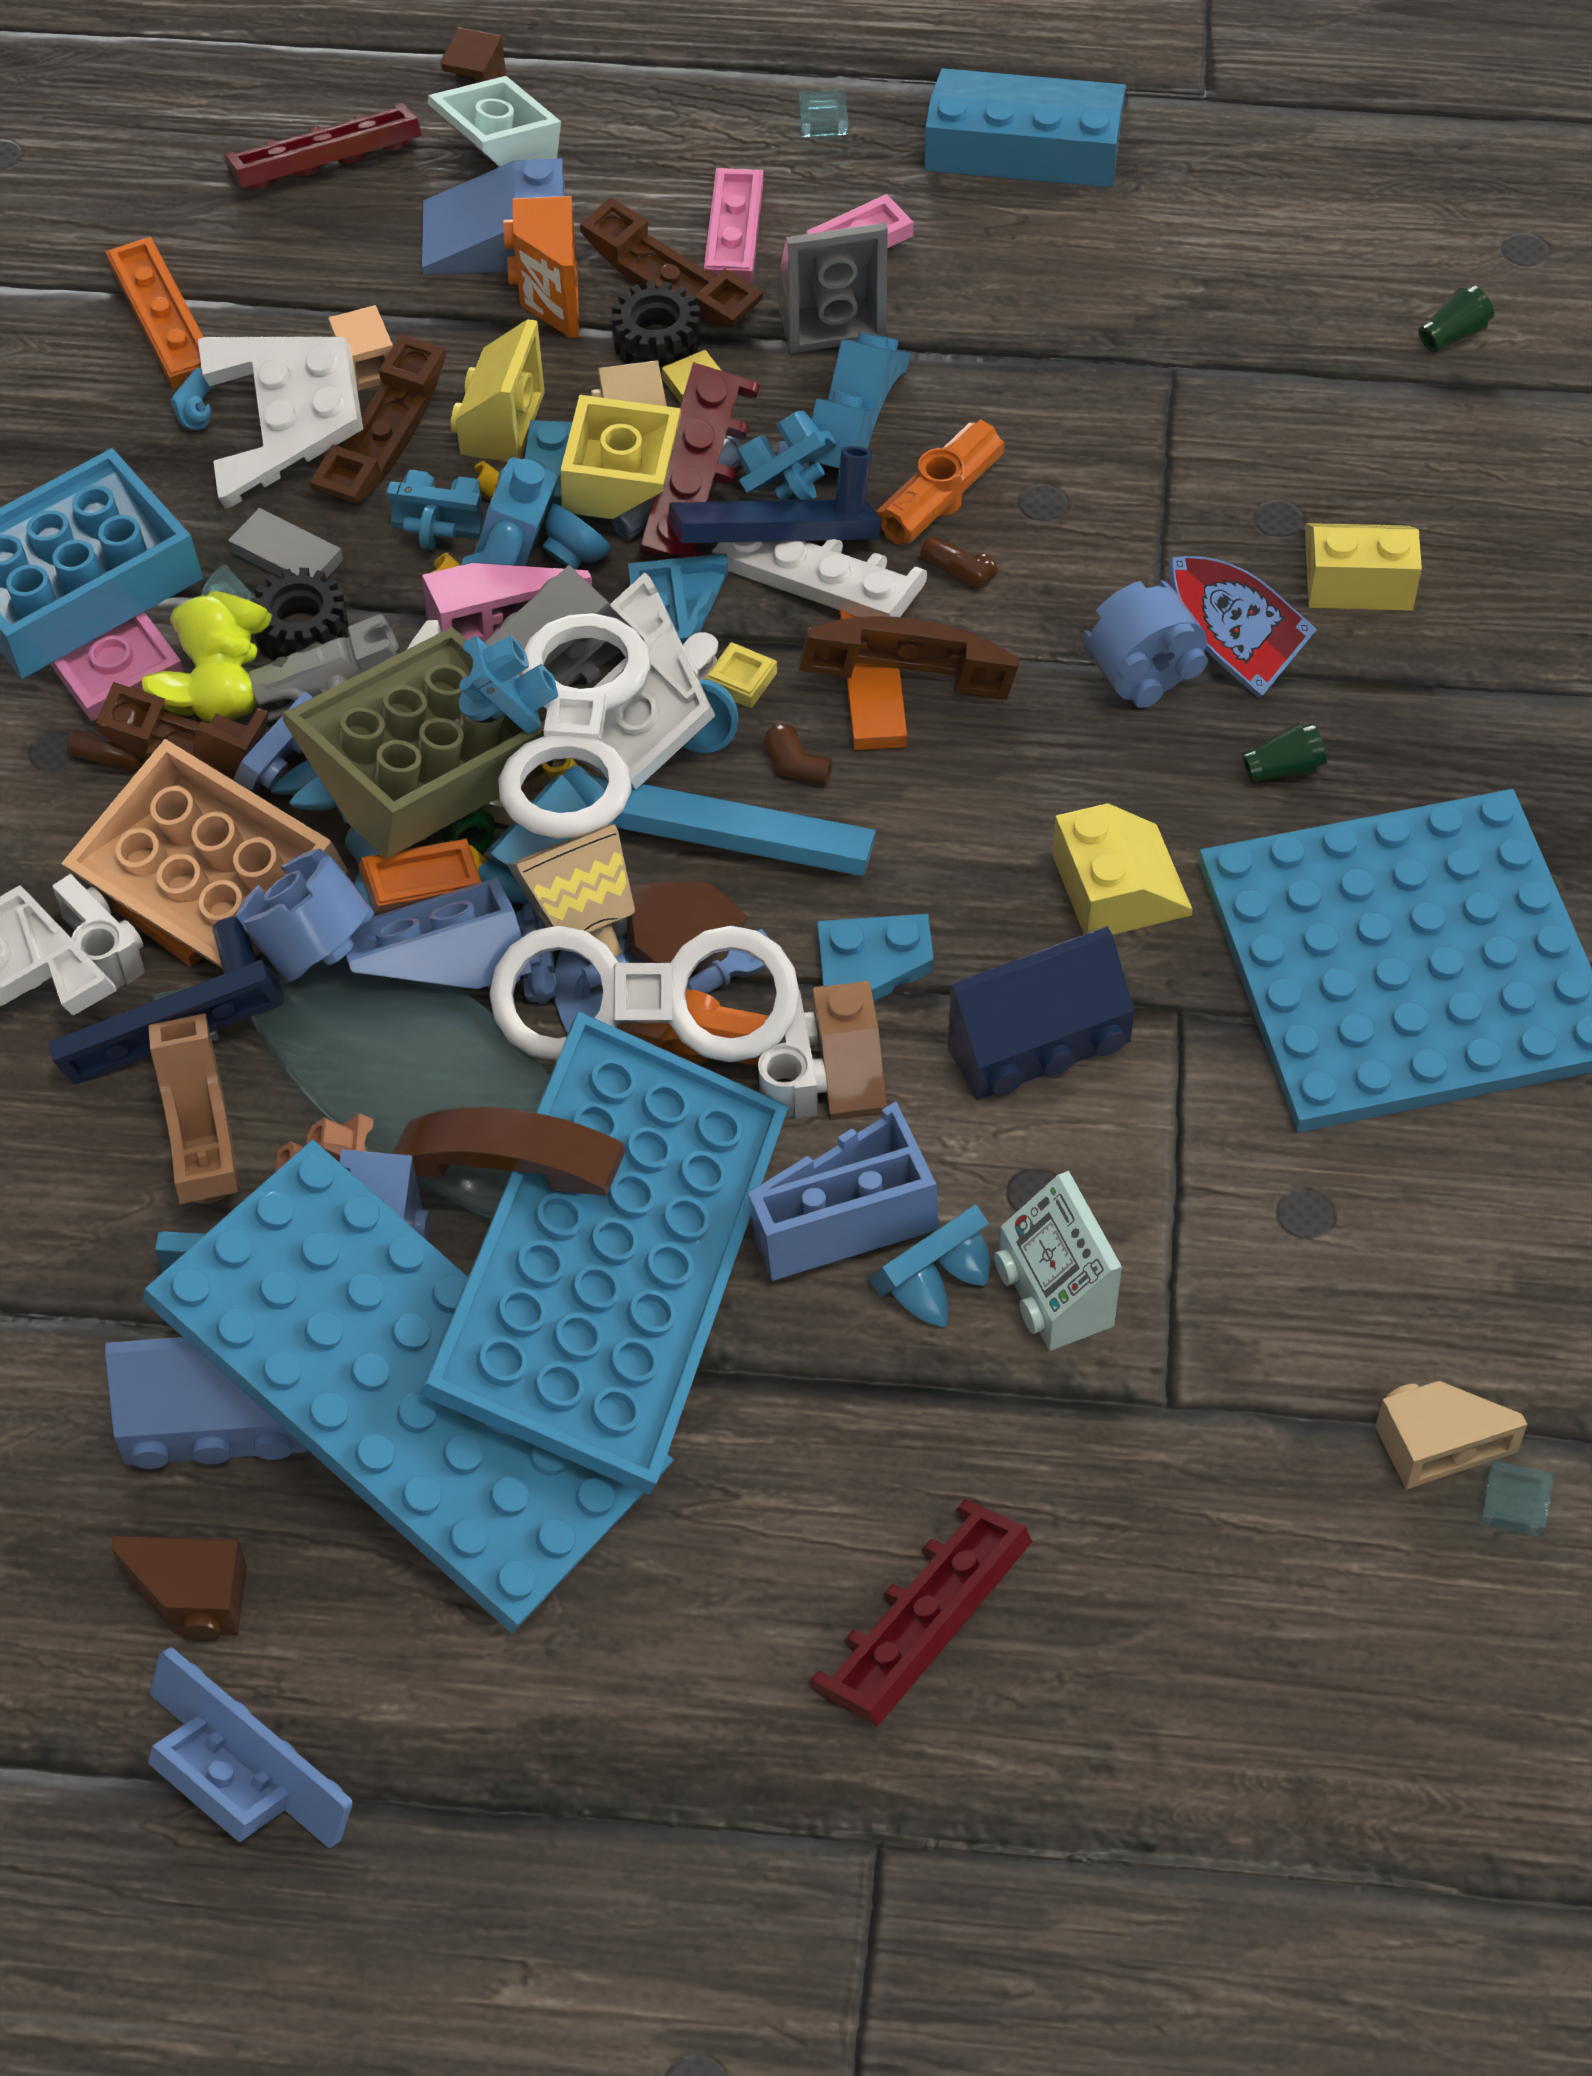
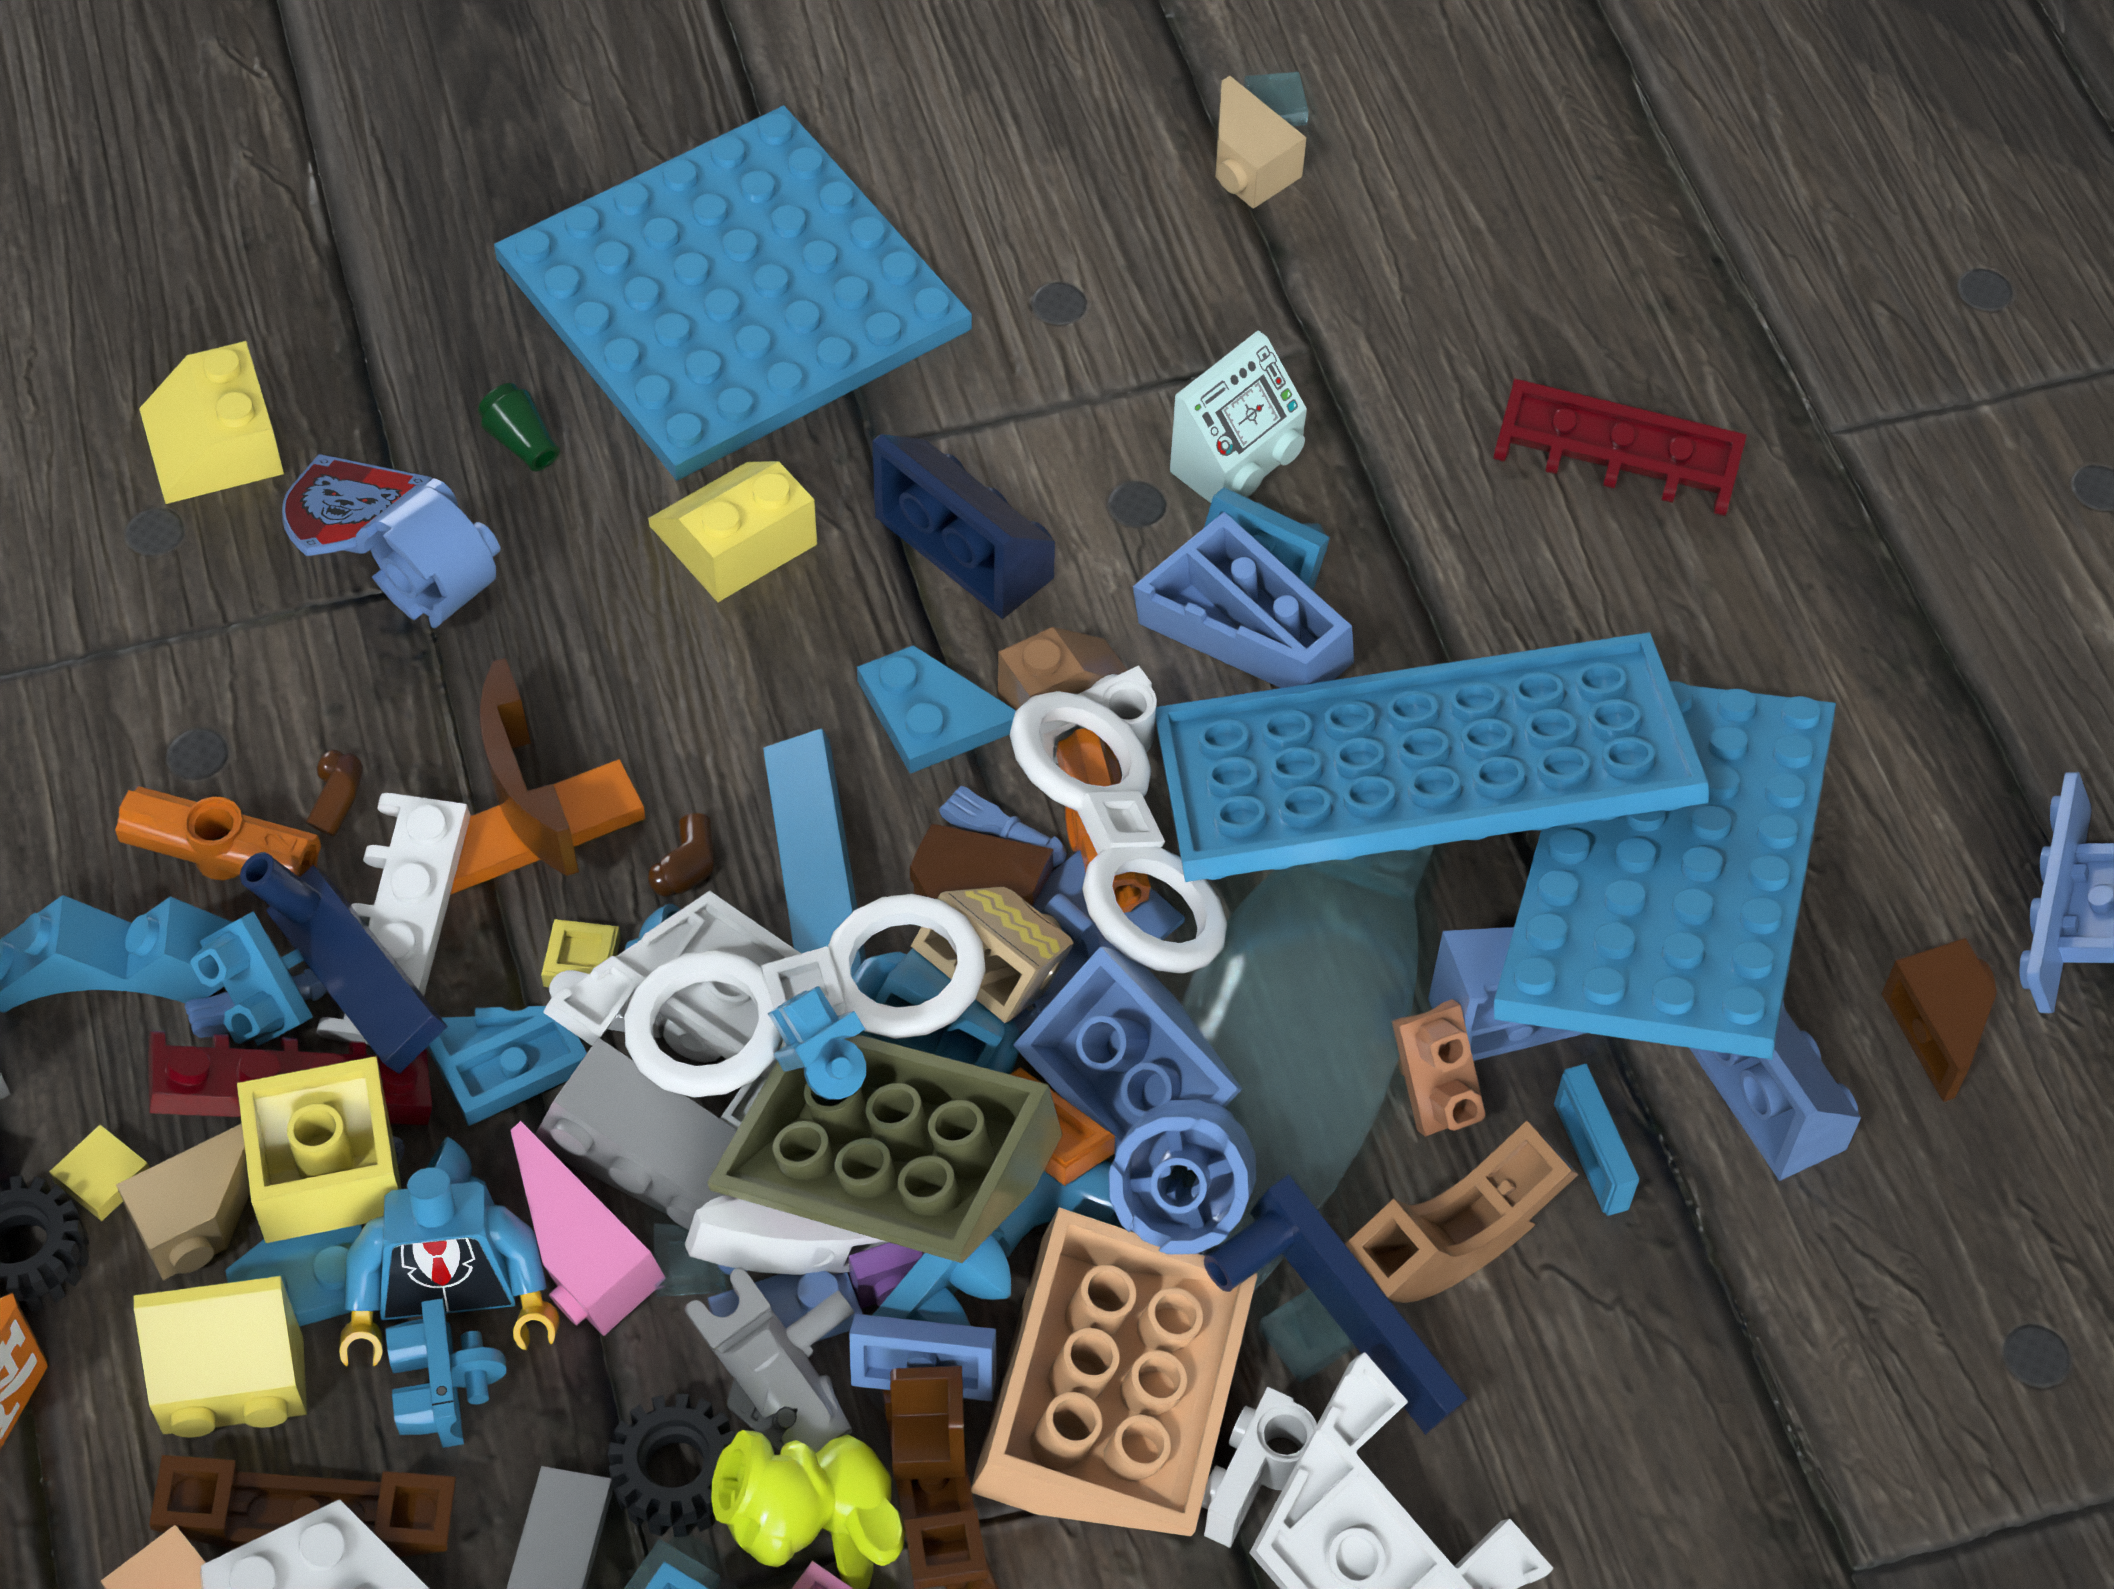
camera: 115 degrees left, 0 degrees up
(513, 1140) = (1392, 862): reddish brown slope -> none

